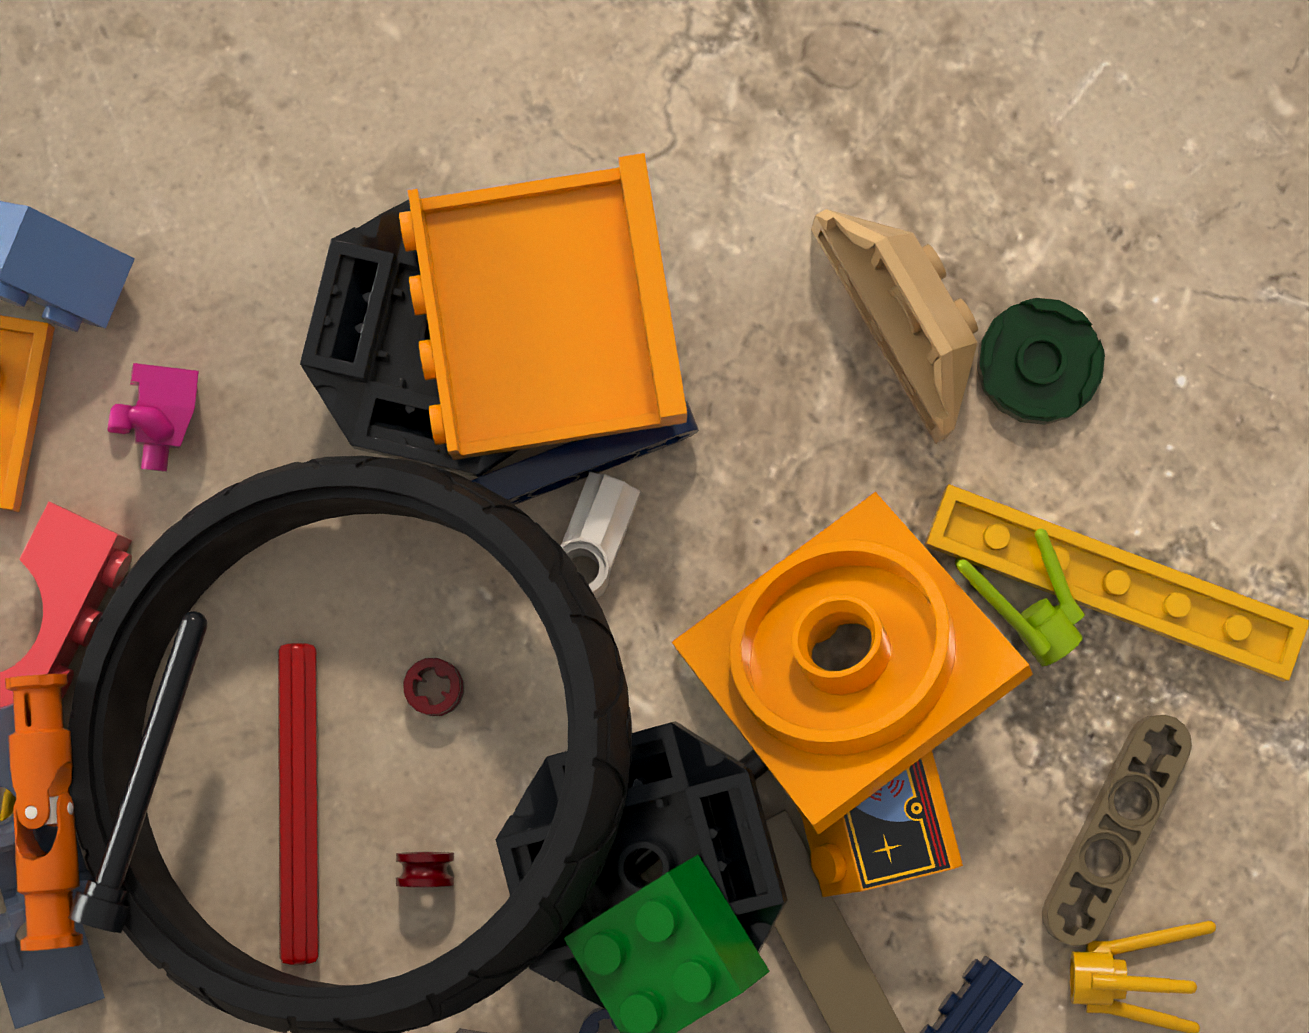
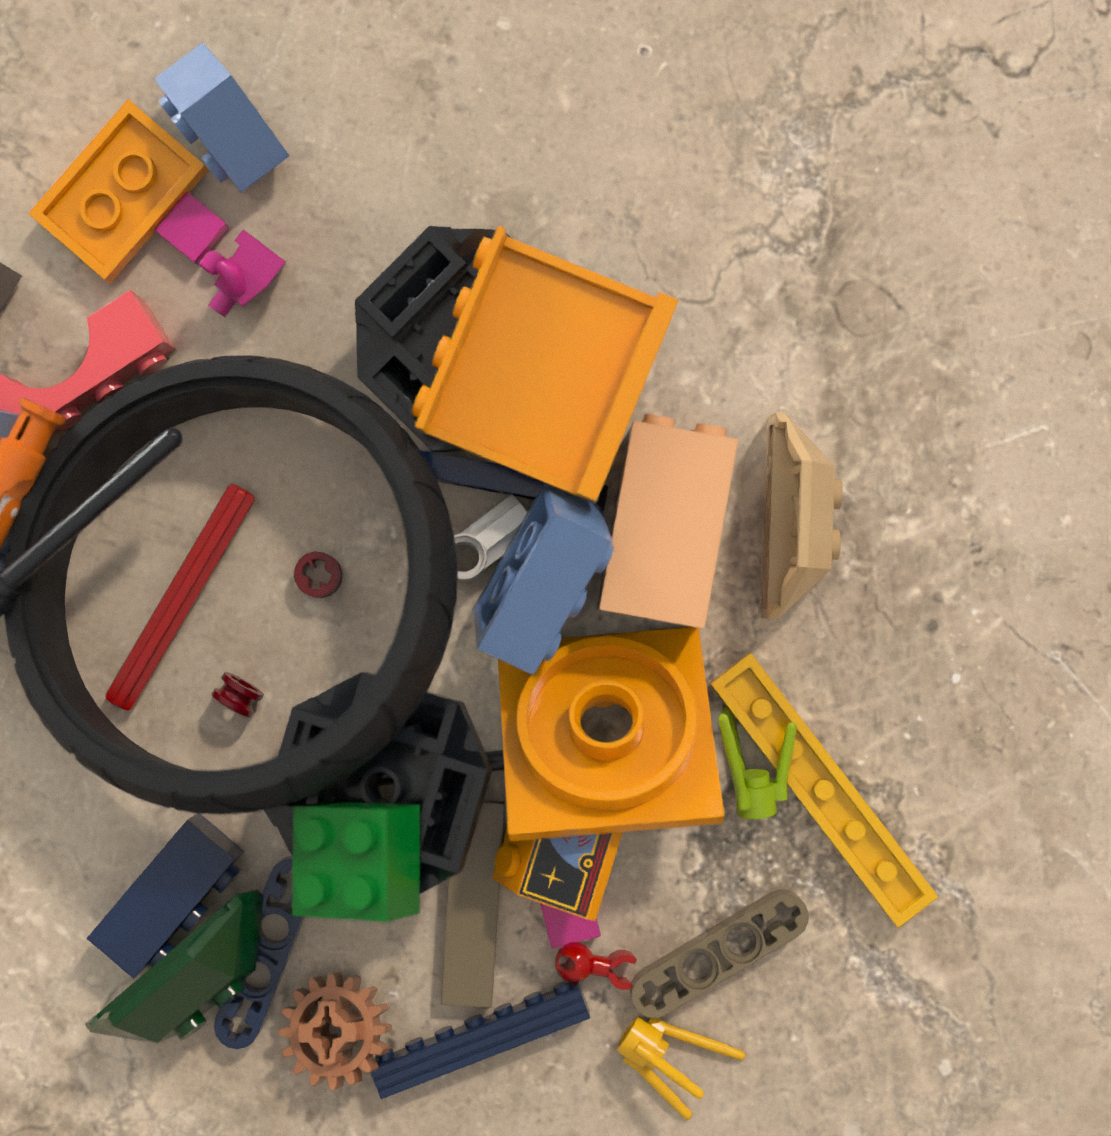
camera: 35 degrees right, 5 degrees up
(73, 400) = (192, 228): none -> dark pink tile
(678, 536) = (542, 579): none -> medium blue brick
(774, 398) = (668, 521): none -> light nougat brick
(934, 897) = (567, 928): none -> dark pink tile
(979, 930) = (582, 964): none -> red arm
(1040, 361) = (868, 606): dark green tile -> none

